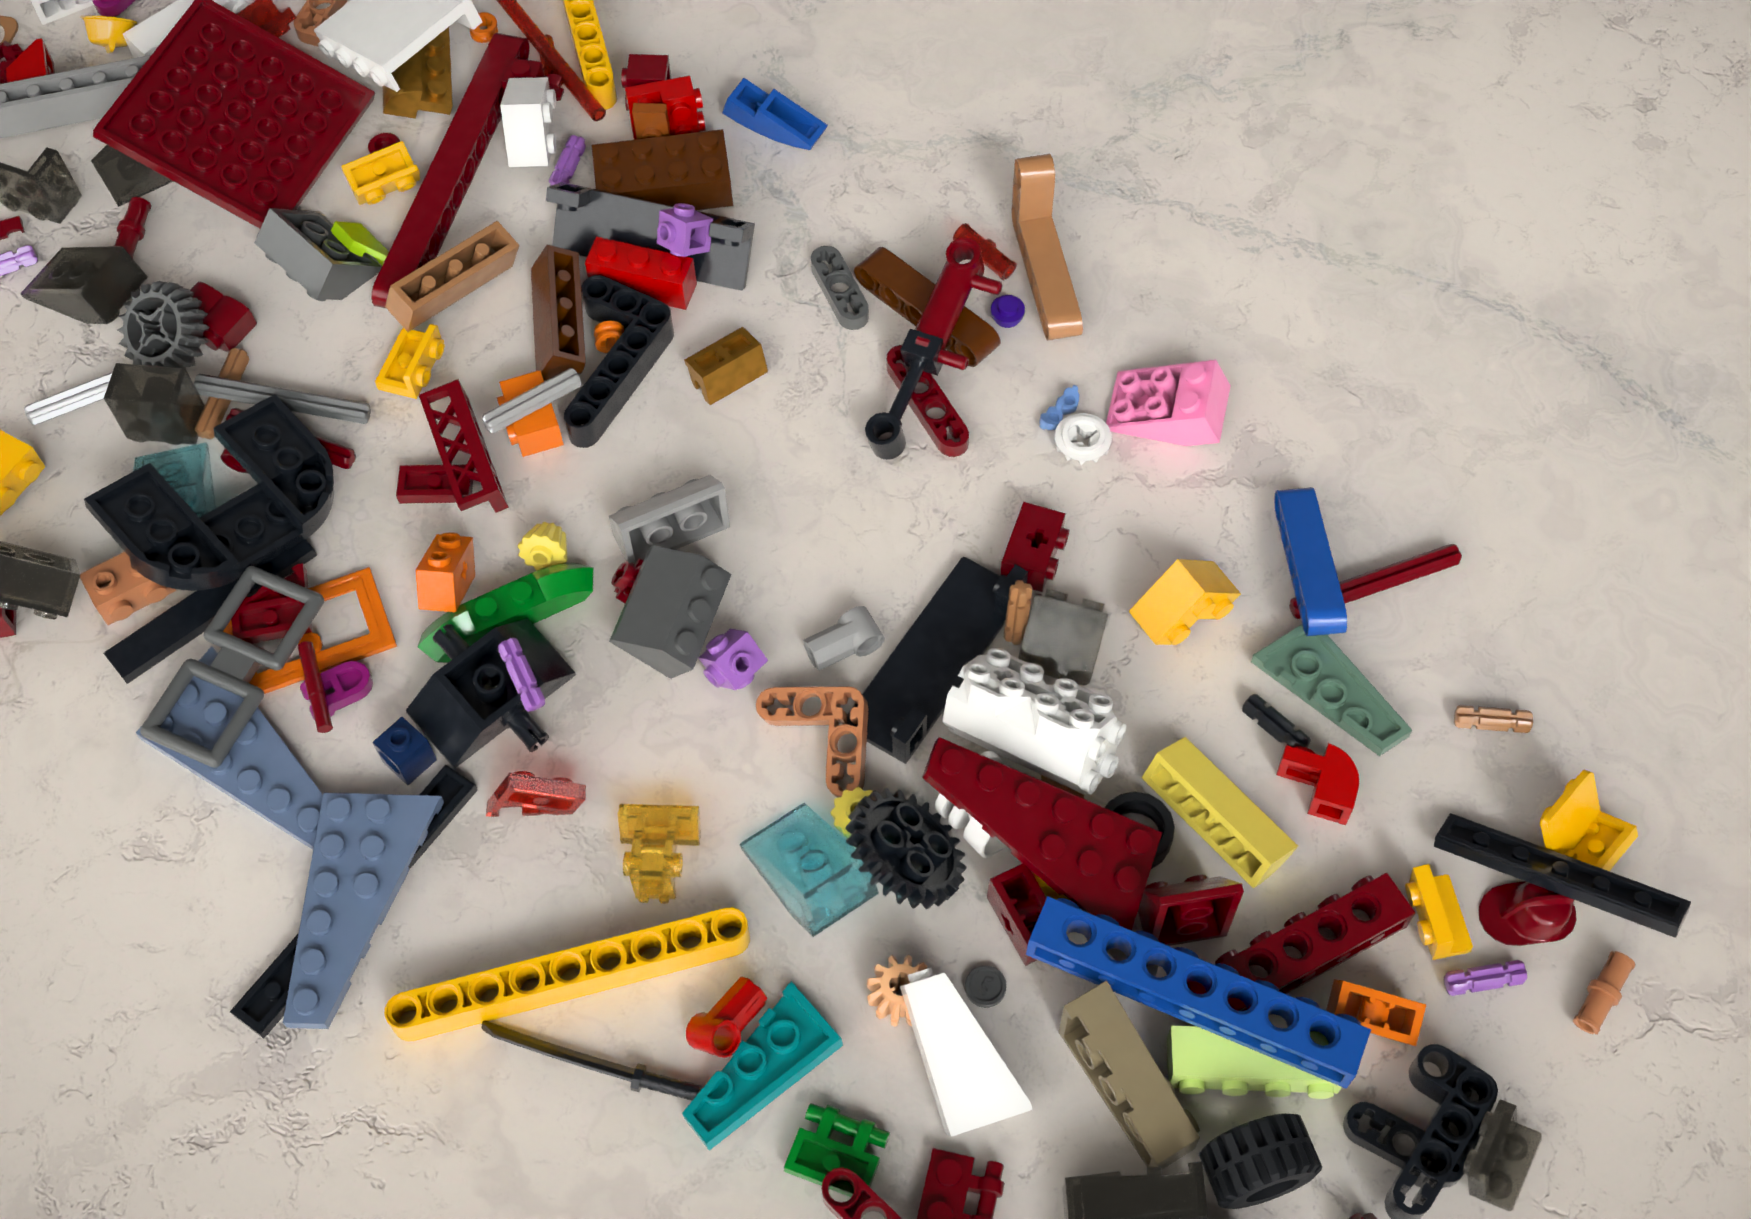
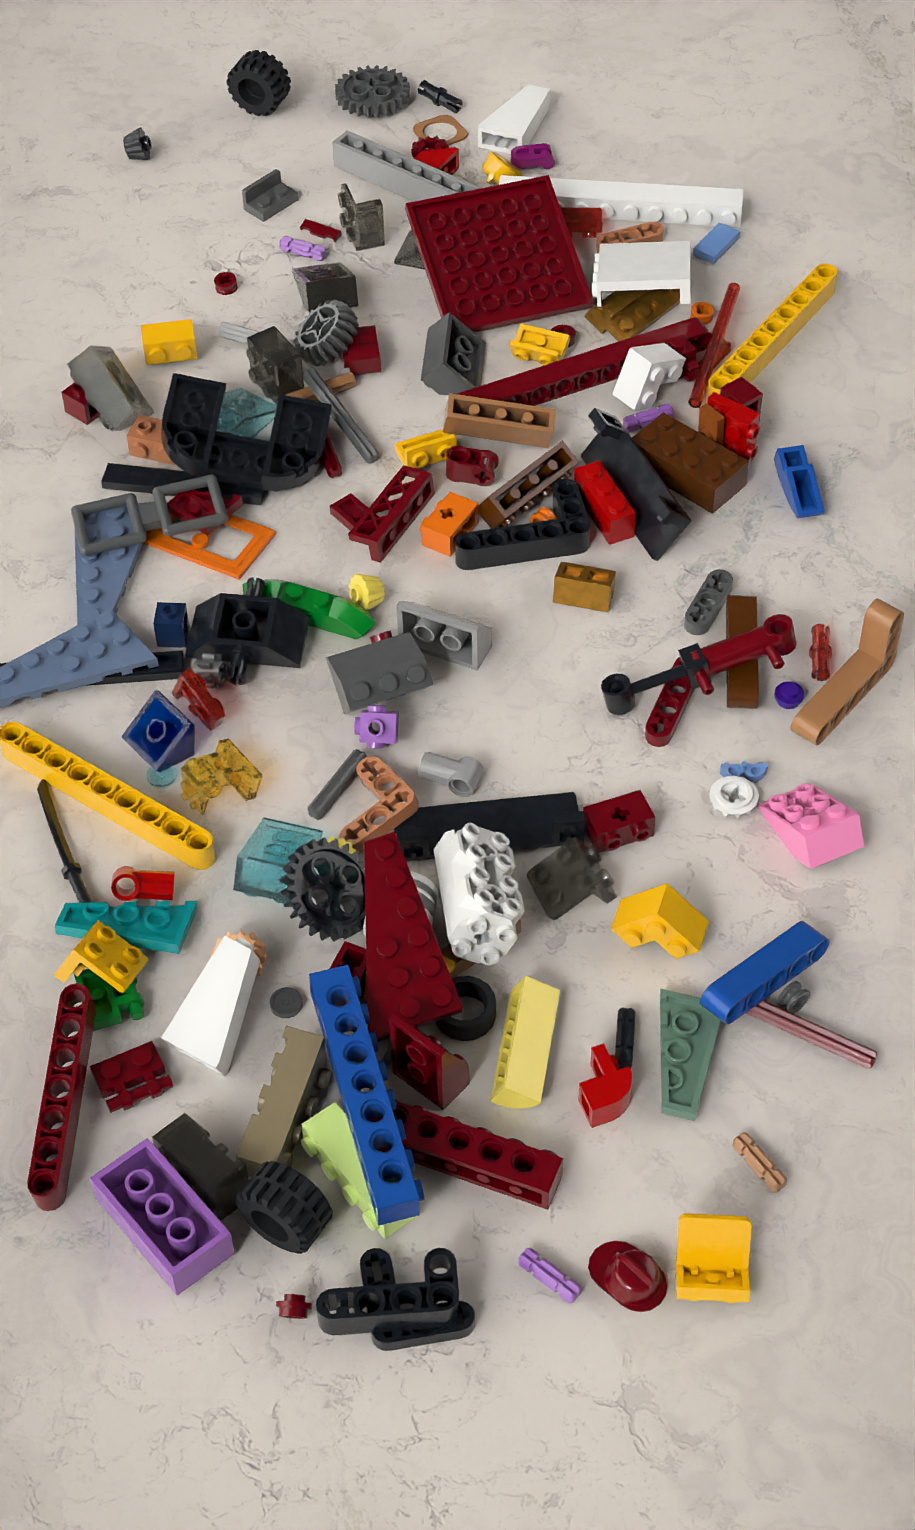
camera: 50 degrees right, 10 degrees down
(132, 227) = (381, 277): dark red pin -> none
(315, 687) = (170, 558): dark red piece -> none
(350, 681) = (183, 571): magenta plate -> none
(359, 240) = (483, 367): lime tile -> none
(445, 572) = (297, 558): orange brick -> none
(474, 342) = (468, 465): none -> dark red piece
(505, 756) = (212, 669): none -> dark grey gear
(521, 674) = (259, 630): medium lavender axle -> none
(531, 400) = (450, 512): light grey axle -> none
(544, 863) = (161, 733): none -> clear blue slope
(588, 901) = (163, 779): none -> clear light blue piece
(684, 230) = (641, 489): medium lavender brick -> none
(760, 748) = (335, 785): none -> dark grey axle
(791, 1121) = (106, 956): none -> yellow bracket
(1017, 612) = (555, 835): medium nougat axle -> none
(1346, 560) = (793, 997): none -> dark grey bush
(1379, 1011) = (454, 1215): orange brick -> none
(1439, 913) = (566, 1211): yellow bracket -> none
(1503, 1159) = (417, 1354): clear smoke bracket -> none
(1563, 875) = (663, 1265): black tile -> none
(1604, 992) = (604, 1353): nougat pin -> none

